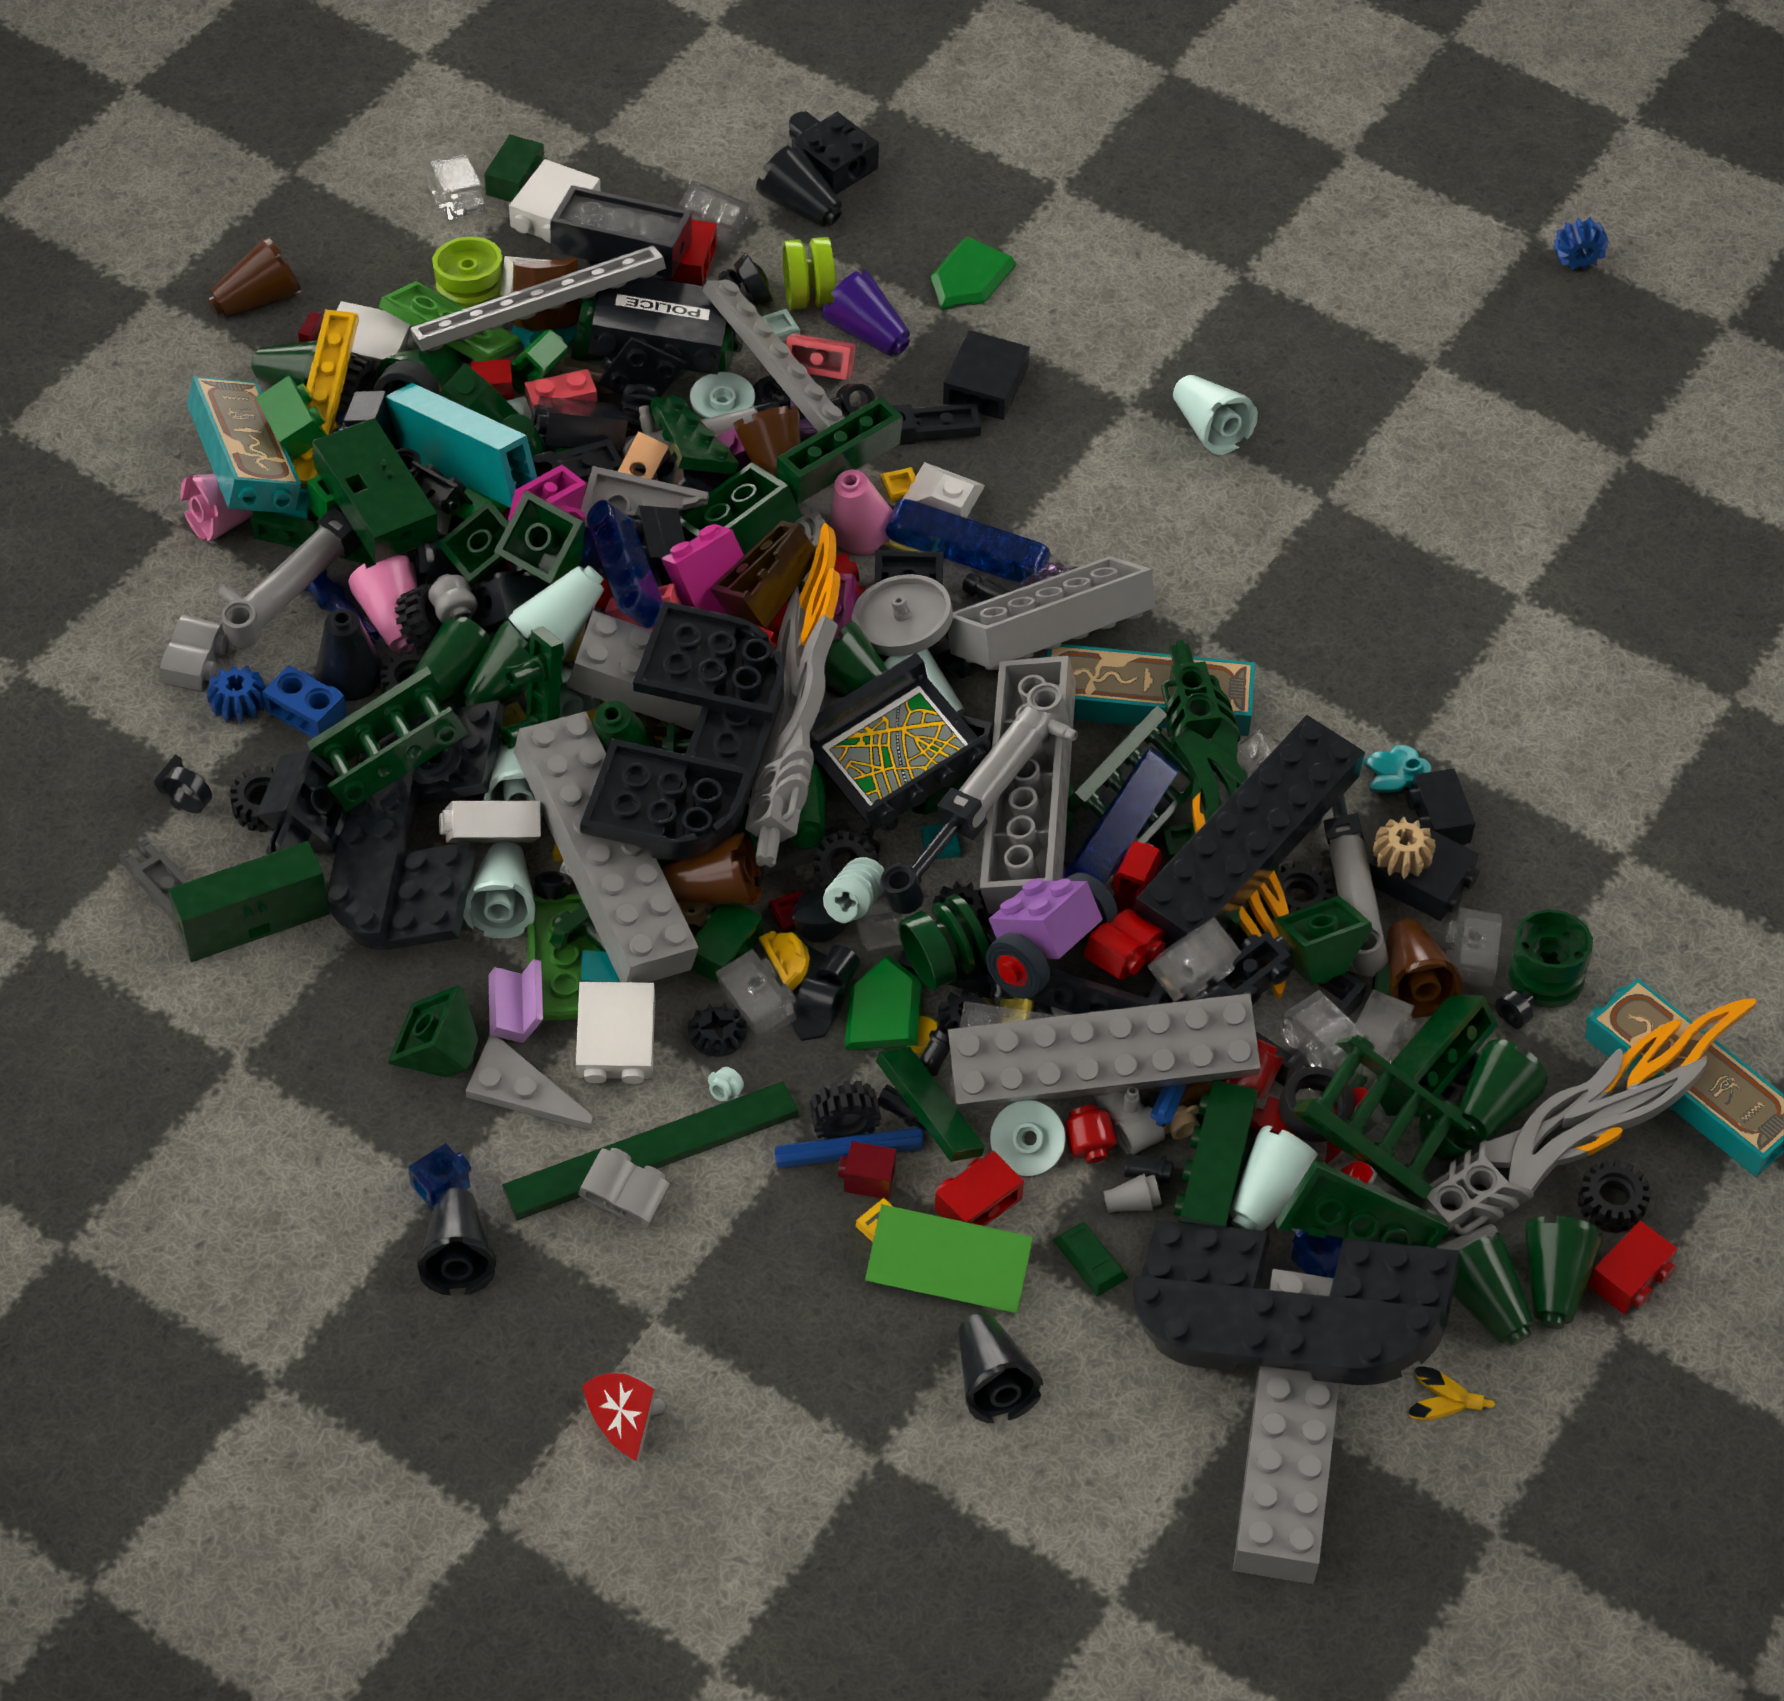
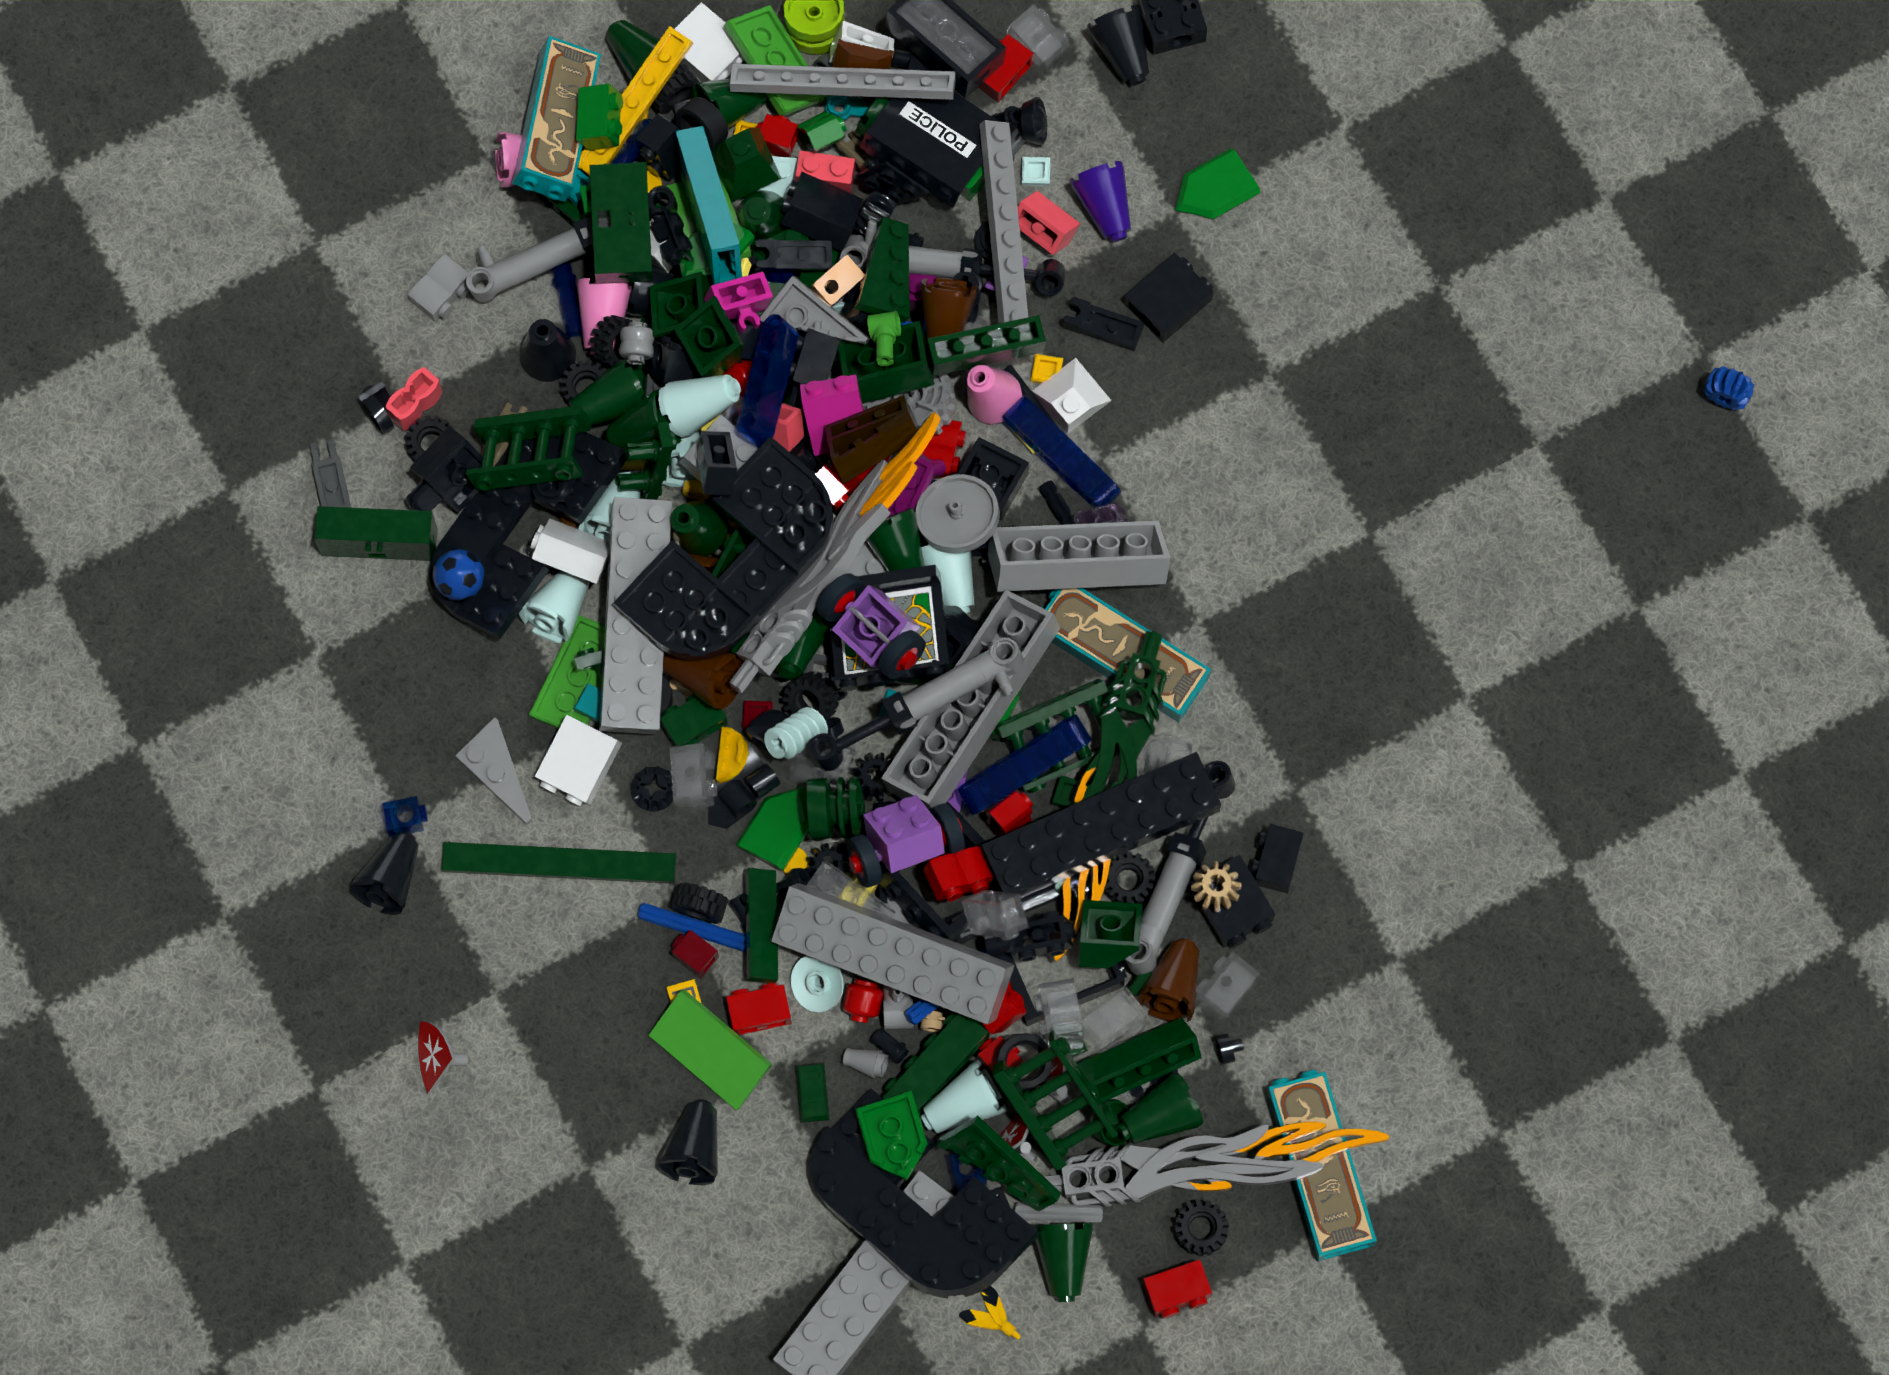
camera: 30 degrees right, 20 degrees up
(222, 758) = (418, 395): none -> coral brick
(236, 693) = (466, 340): blue gear -> none
(304, 702) = (495, 374): blue brick -> none
(311, 327) = (669, 17): dark red tile -> none
(377, 883) = (458, 574): none -> blue piece
(437, 1035) = (455, 702): dark green slope -> none
(515, 1002) = (522, 701): lavender panel -> none
(552, 885) = (595, 613): black tile -> none
(622, 640) = (716, 463): none -> black brick
(624, 1188) = (520, 887): light grey brick -> none
(721, 394) = (942, 216): light aqua dish -> none
(724, 479) = (883, 331): none -> bright green pin
(725, 1084) = (633, 837): light aqua plate -> none
(805, 274) = (1075, 138): lime wheel -> none
(886, 733) = (872, 625): none -> brick
(1216, 411) = (1323, 418): light aqua cone -> none
(1221, 1240) = (893, 1133): none -> green tile
(1395, 768) = (1267, 802): teal plate -> none
(1550, 957) = (1280, 1011): dark green wheel -> none
(1560, 1266) = (1122, 1266): dark green cone -> none

